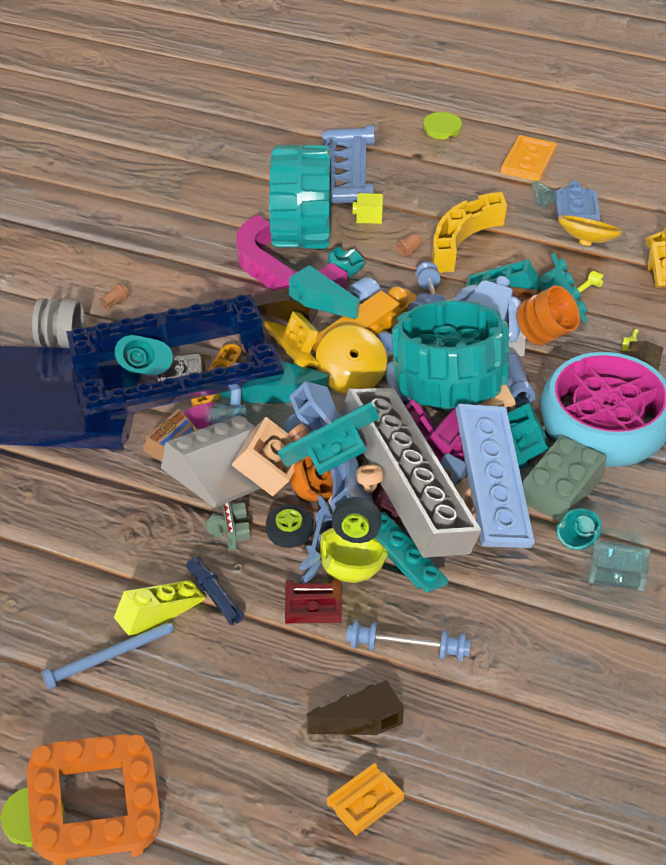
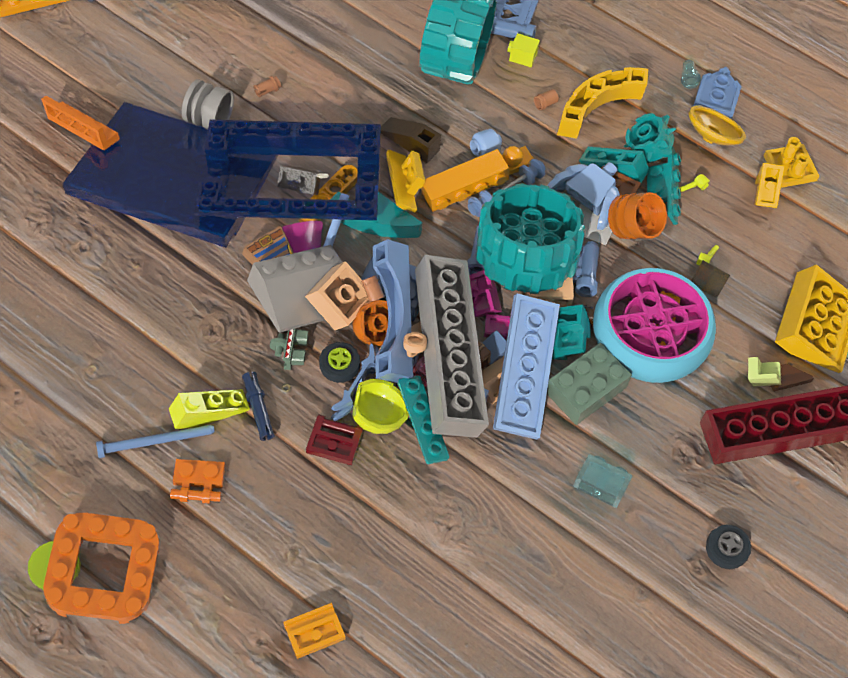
camera: 10 degrees right, 15 degrees up
(143, 355) = (268, 161): teal piece -> none
(170, 676) = (197, 474): none -> orange plate
(222, 412) = (319, 238): clear light blue cone -> none
(264, 267) = (448, 123): dark pink arch -> none
(322, 293) = (440, 140): teal slope -> none
(332, 443) = (394, 305): teal bracket -> none
(345, 370) = (448, 228): yellow dish -> none
(349, 260) = (481, 104): teal hair -> none
(360, 529) = (389, 382): black wheel -> none
(362, 713) = (340, 555): dark brown slope -> none
(368, 635) = (369, 486): medium blue axle -> none
(428, 279) = (548, 142): medium blue axle -> none
(446, 434) = (500, 313): dark pink tile -> none
(529, 158) = (694, 29): light orange tile -> none
(532, 244) = (651, 137): none -> teal brick
(579, 529) = (581, 437): teal hair -> none

